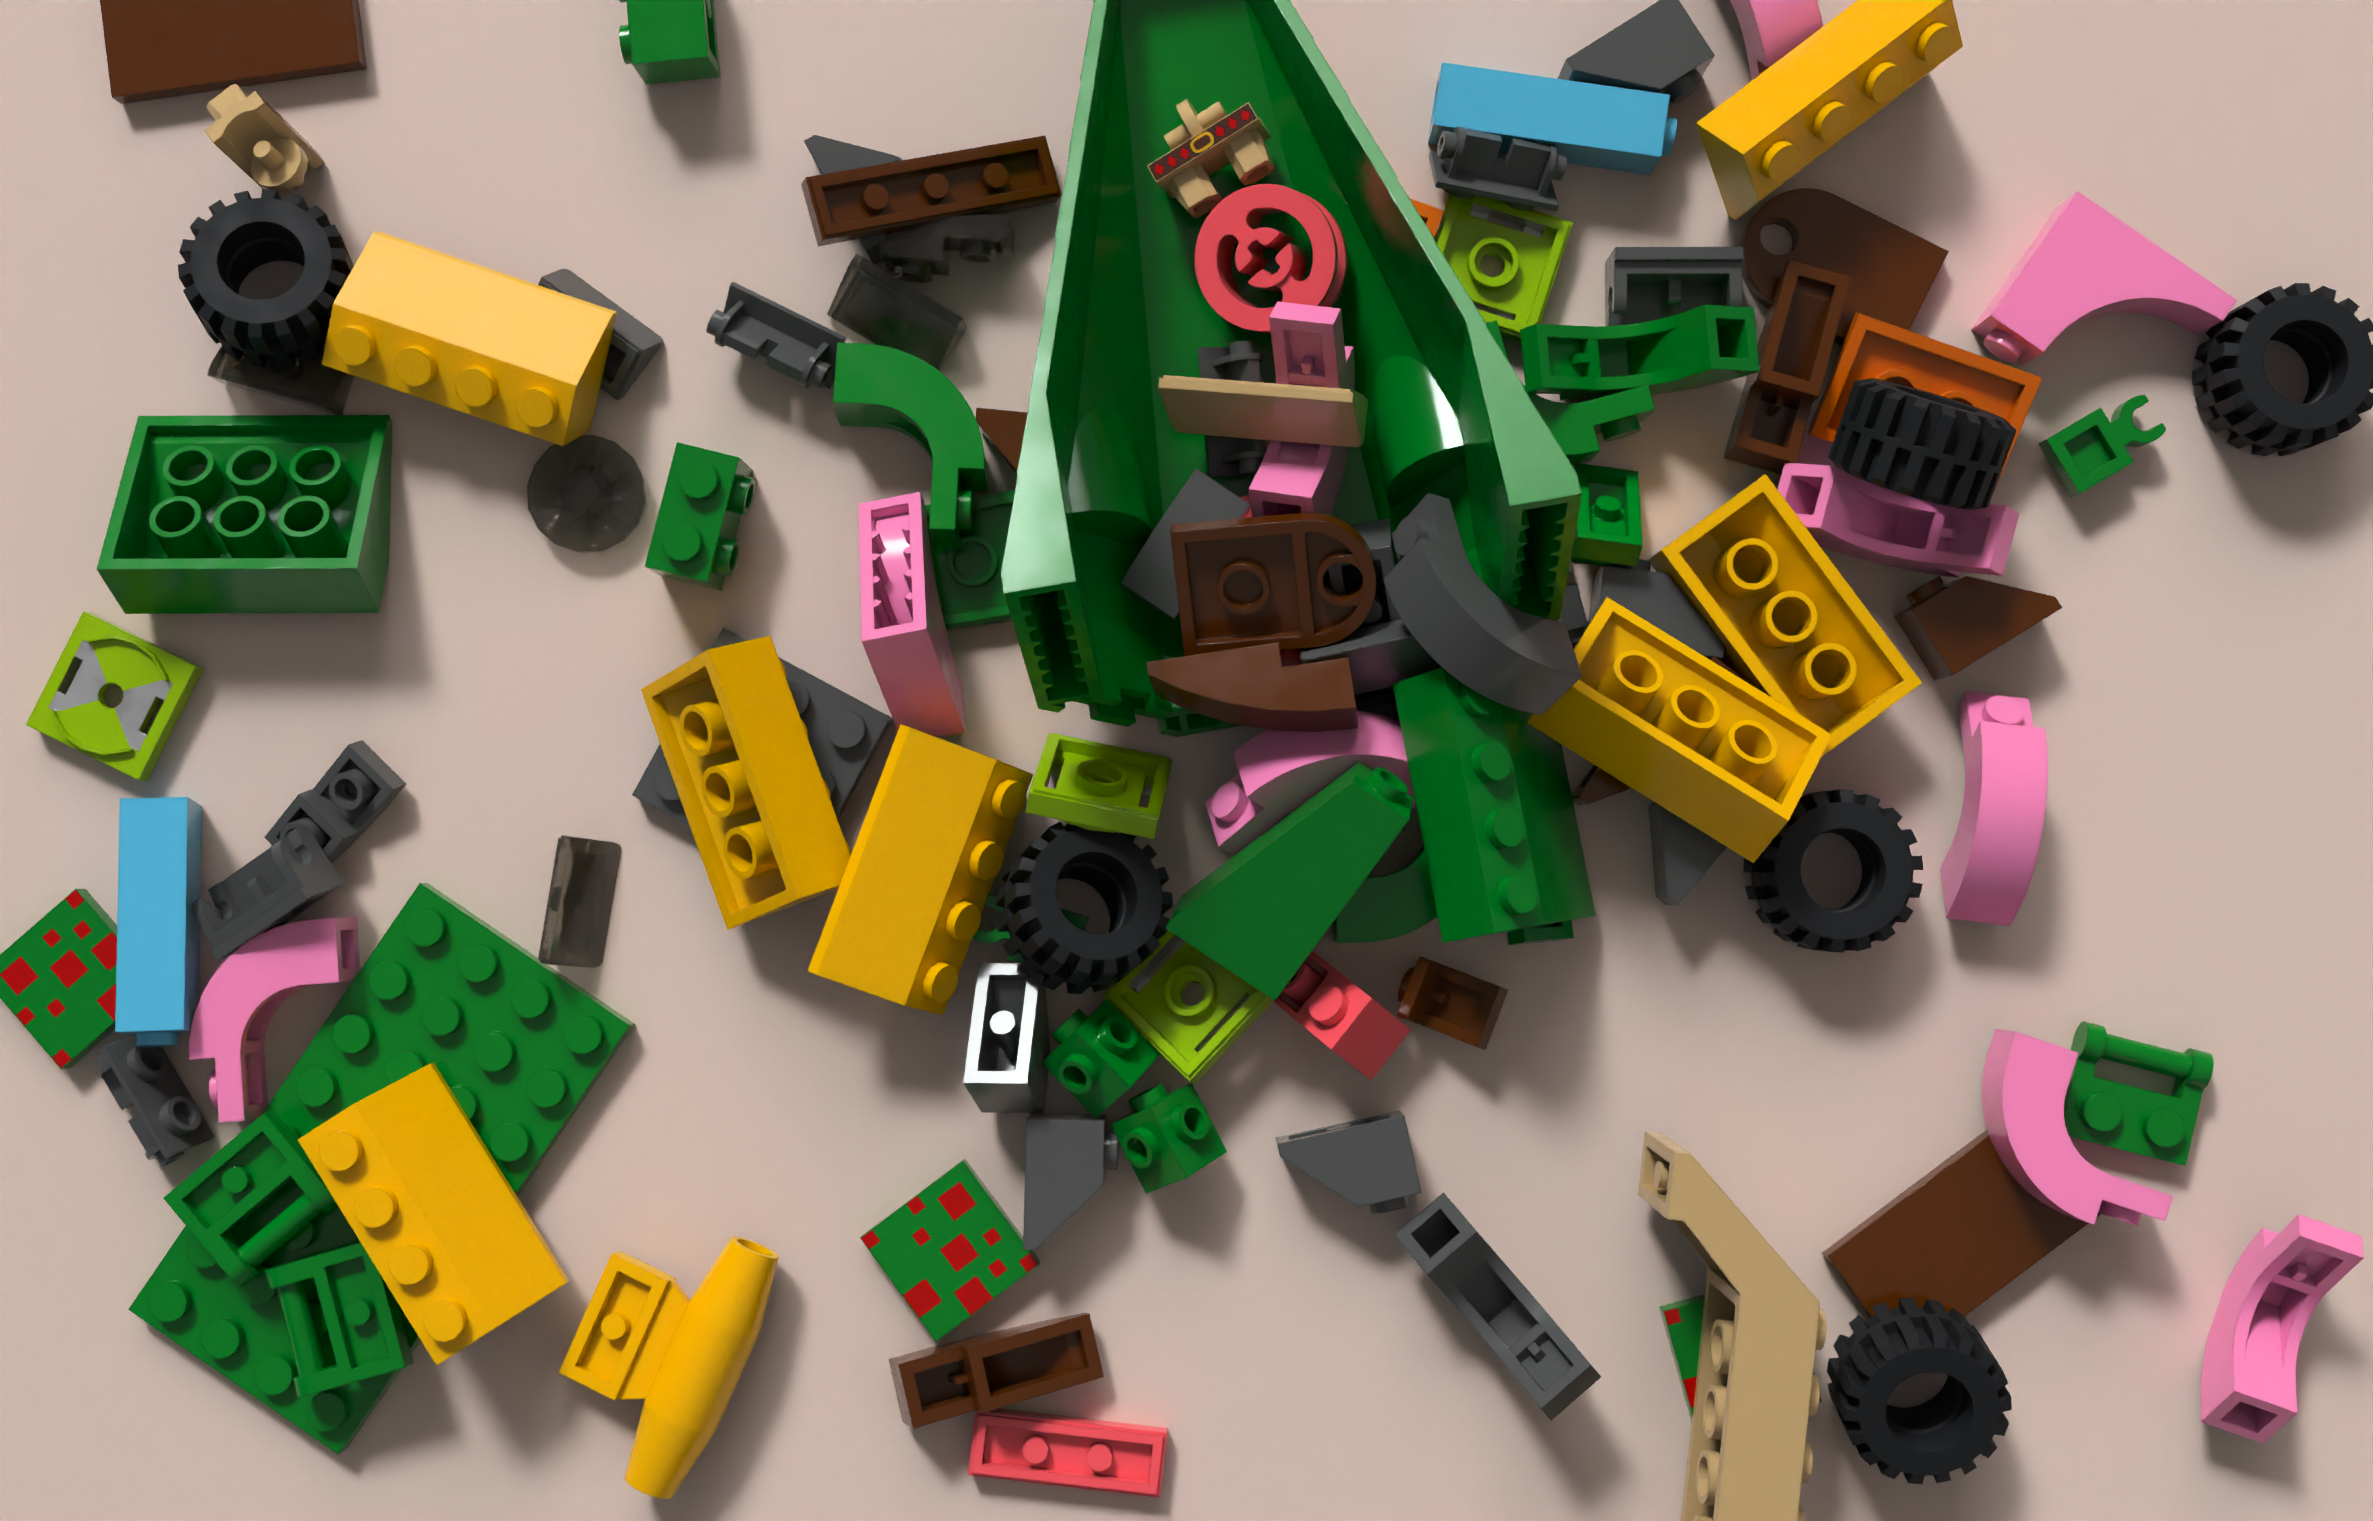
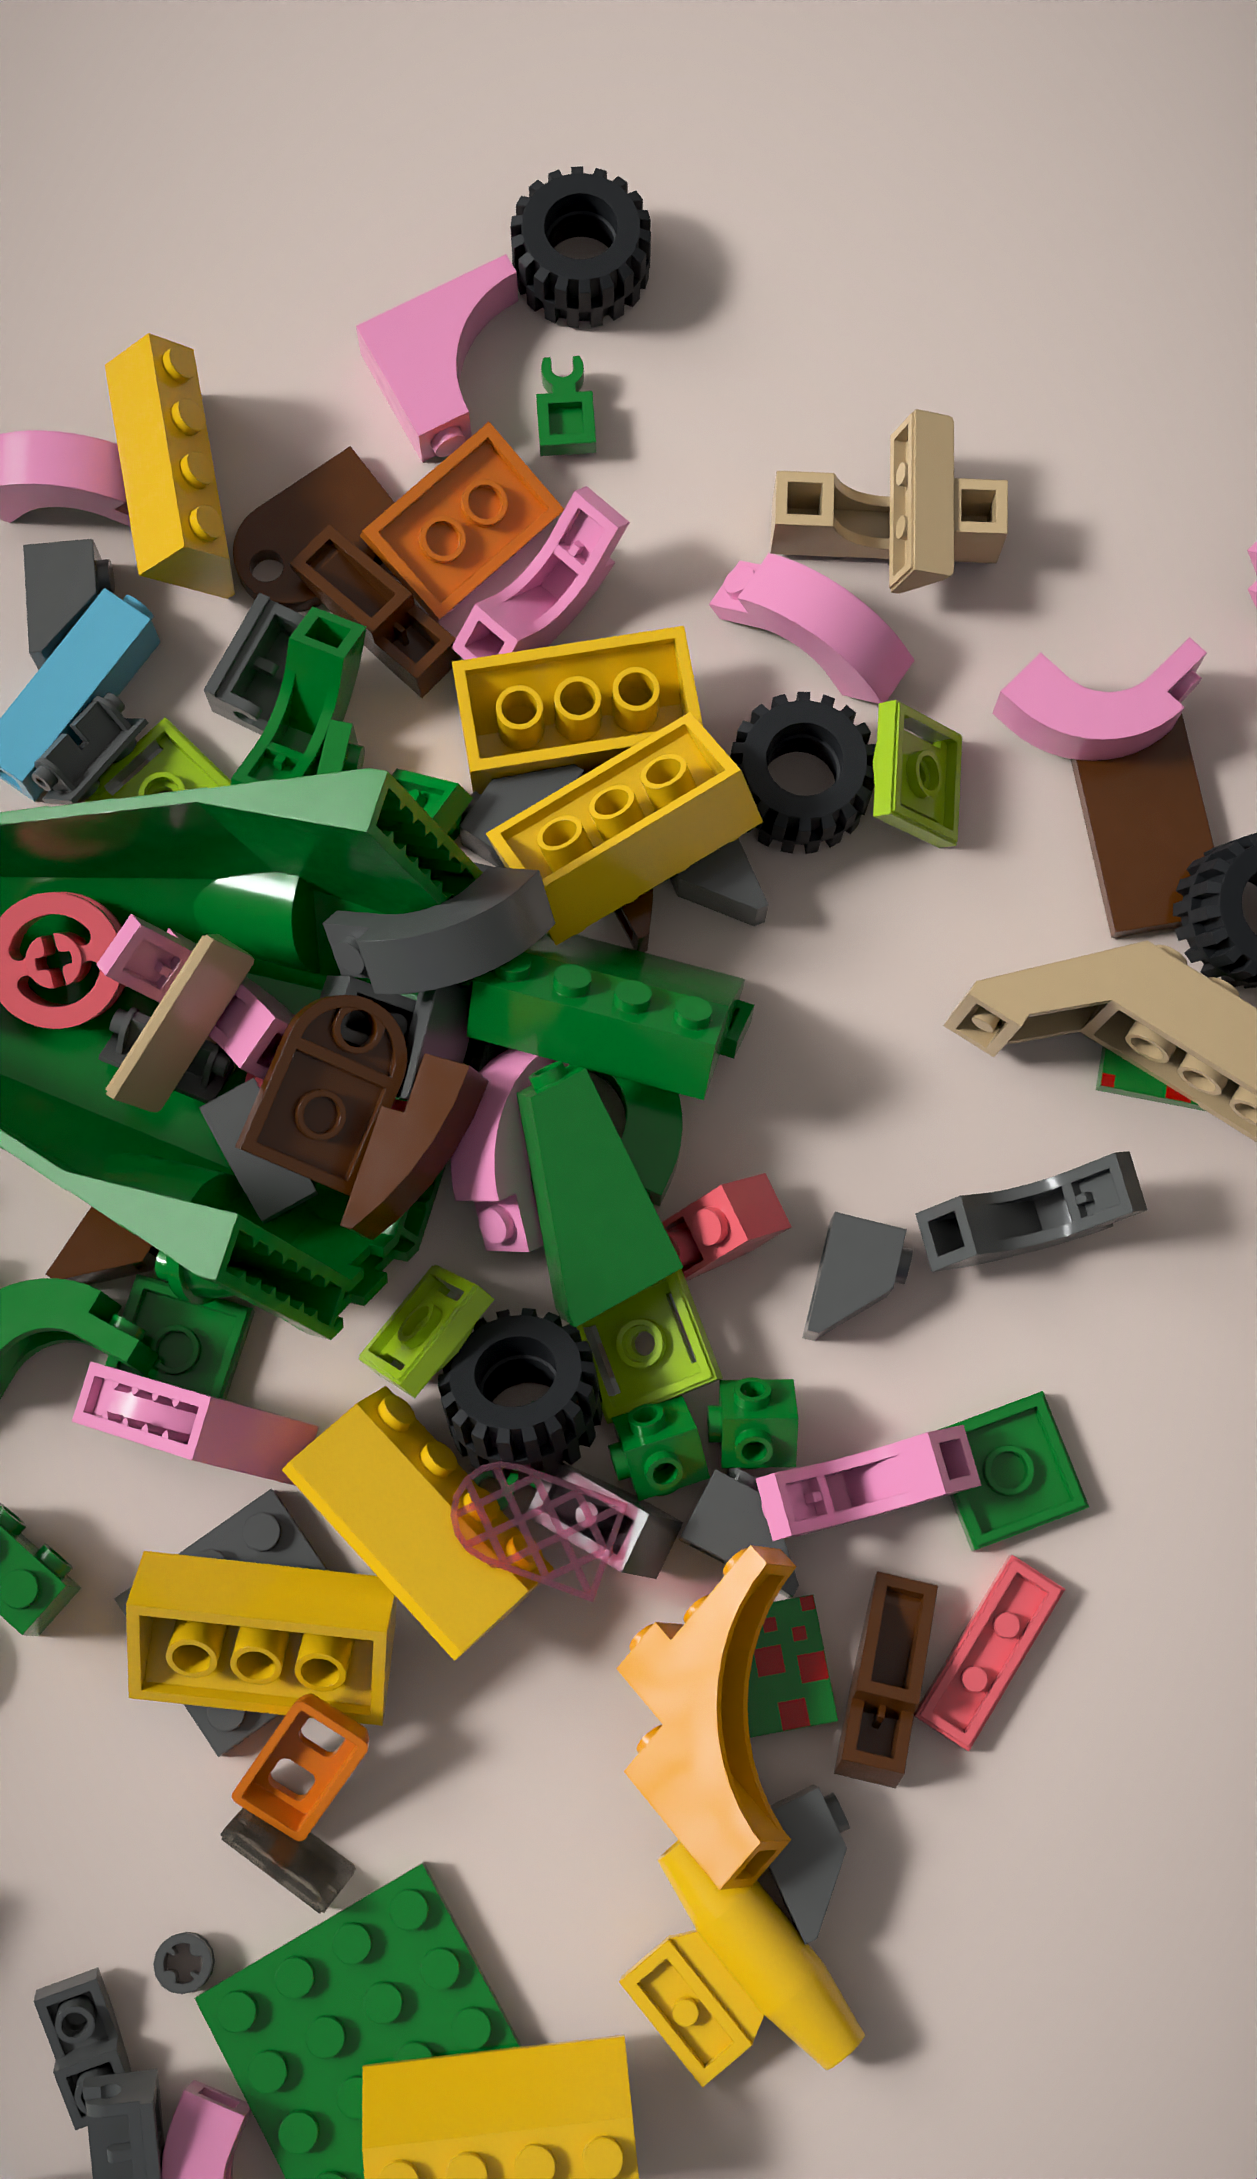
camera: 75 degrees left, 10 degrees down
(427, 850) = (169, 1977): none -> dark grey bush
(618, 886) = (277, 1804): none -> orange piece
(803, 1365) = (812, 1859): none -> dark grey slope
(839, 1232) = (701, 1759): none -> light orange arch
(917, 972) = (504, 1562): none -> clear pink window
(1163, 1268) = (868, 1483): none -> bright pink arch
(1244, 1391) = (1020, 1470): none -> green tile
(1450, 1002) = (758, 1130): reddish brown bracket -> none
(1888, 987) = (917, 776): none -> lime piece
(1921, 444) = (491, 529): black tyre -> none
(1967, 620) = (652, 574): reddish brown slope -> none
(2121, 775) = (826, 518): none -> tan arch
(2130, 1115) = (1112, 646): green plate -> none
(2183, 855) = (921, 501): none -> tan slope

